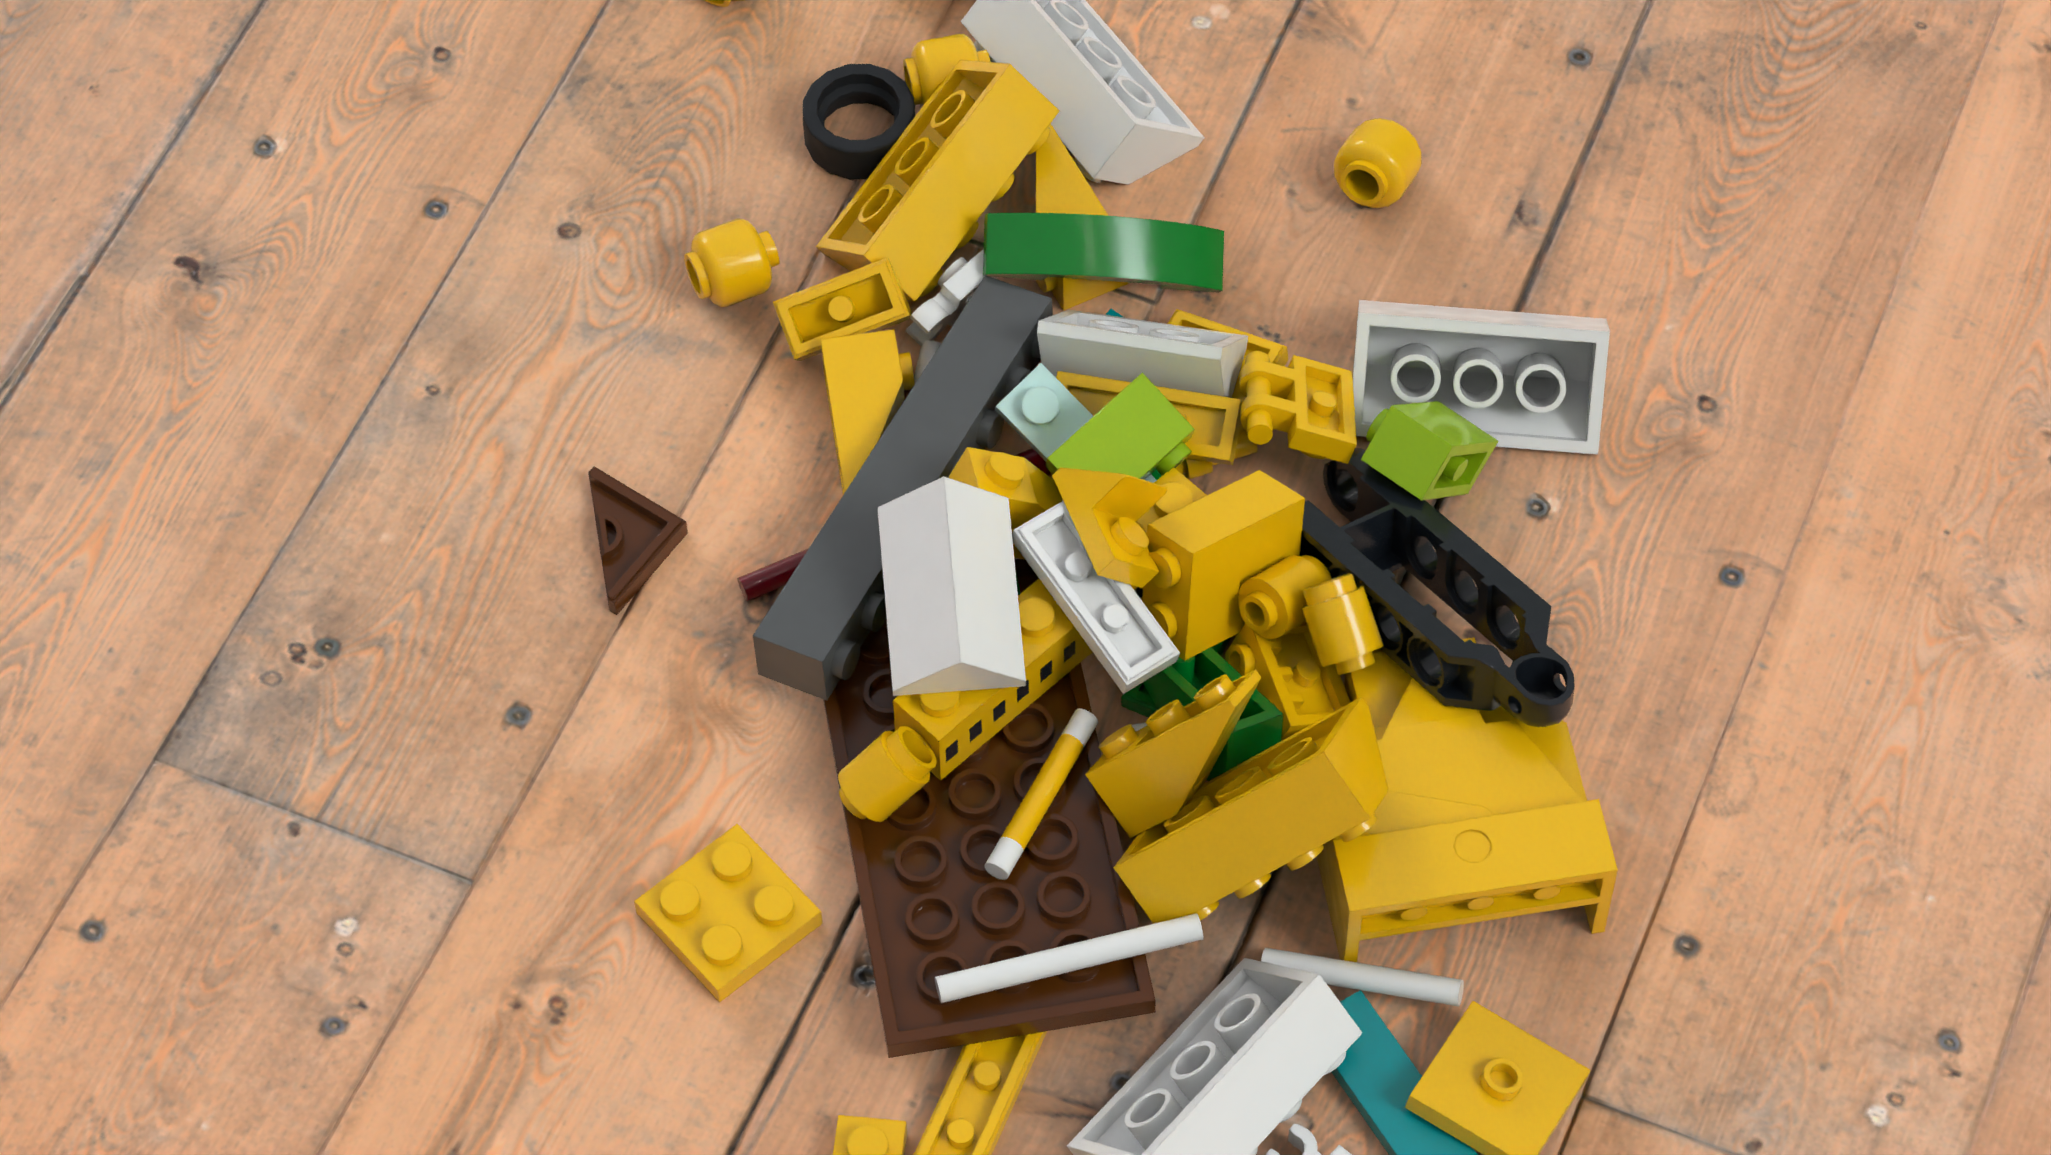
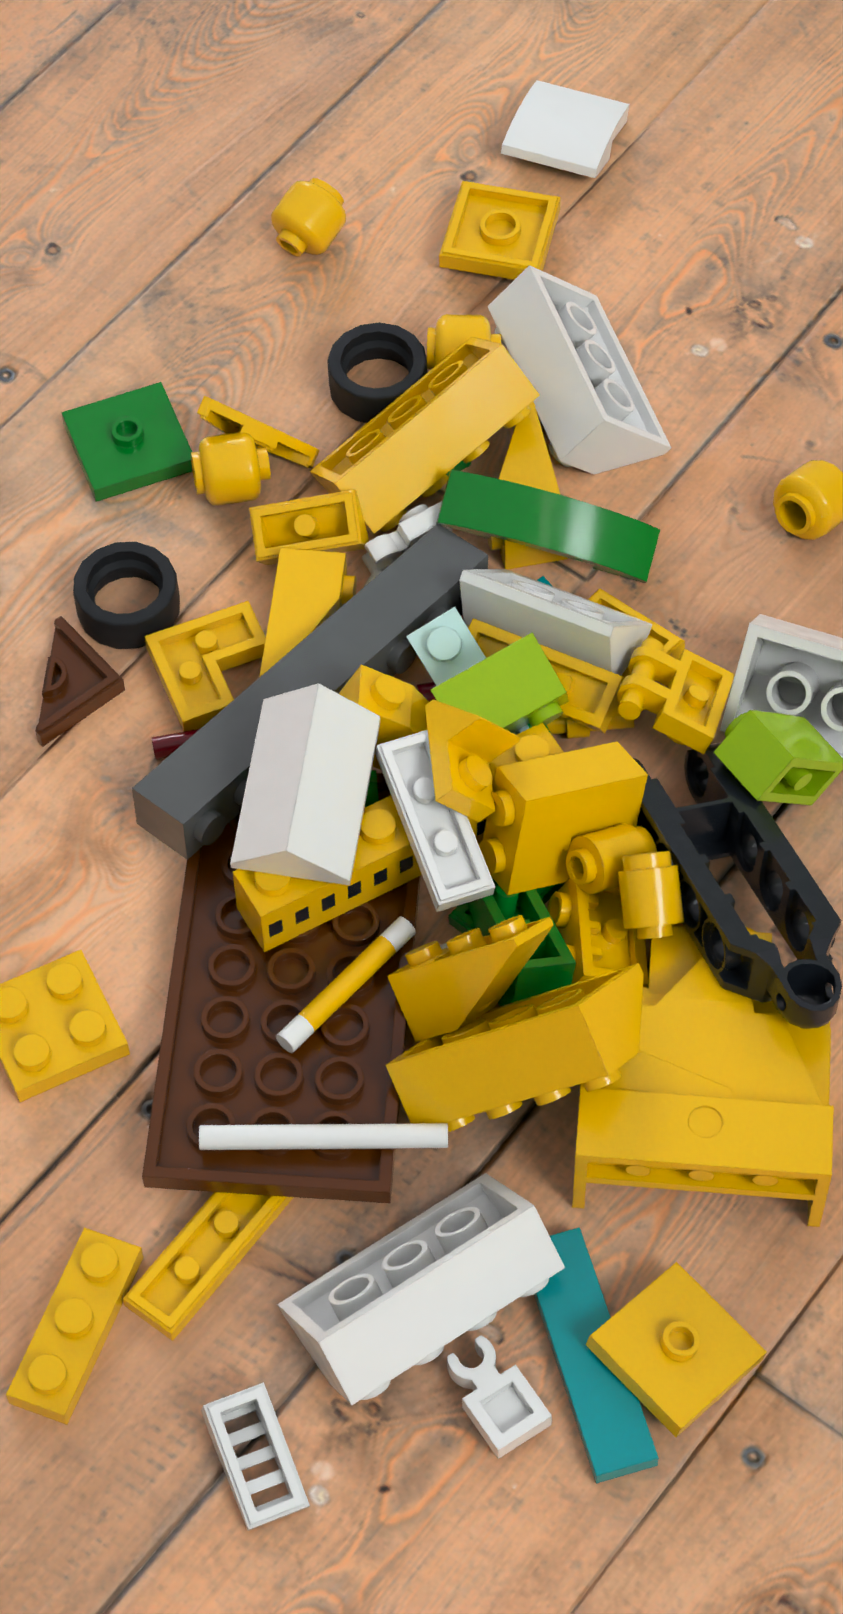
camera: 15 degrees right, 0 degrees up
(603, 255) = (128, 441): none -> green plate
(651, 389) = (118, 562): none -> black tyre
(718, 209) = (277, 442): none -> yellow tile
(758, 478) = (196, 653): none -> yellow plate
(886, 774) = (211, 935): yellow brick -> none
(1372, 977) = (588, 1217): white bar -> none

